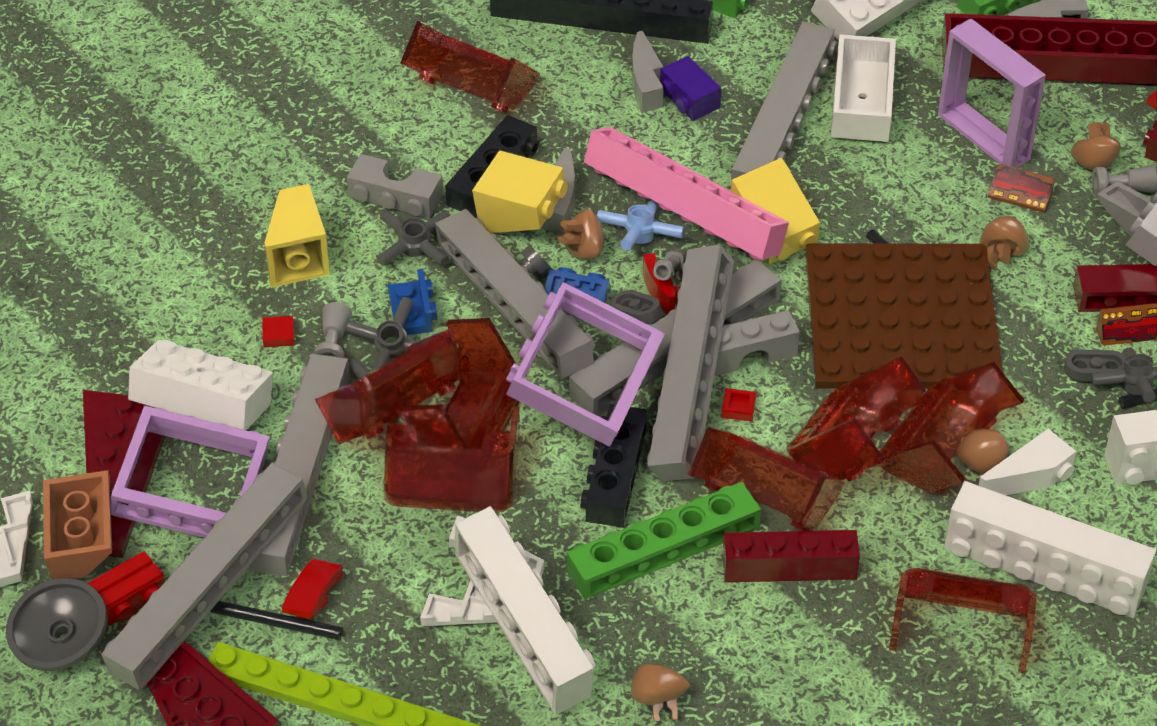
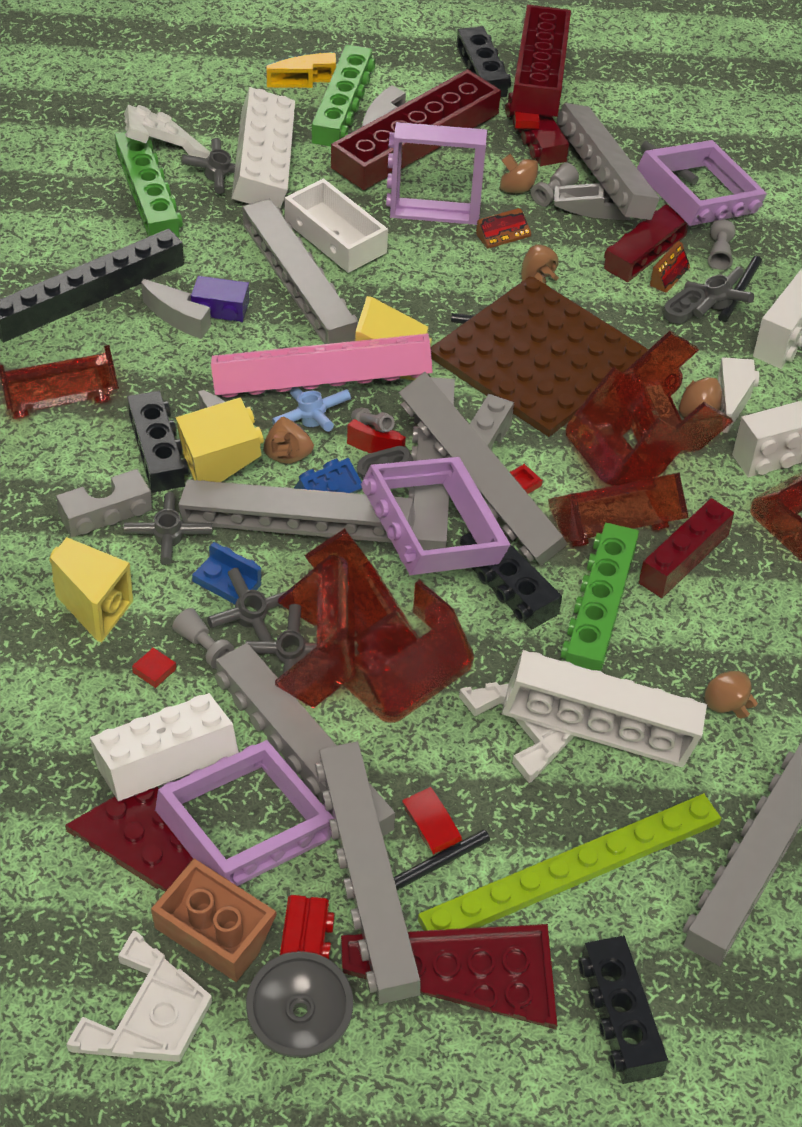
camera: 50 degrees left, 0 degrees up
(534, 262) = (283, 478): dark grey plate -> none

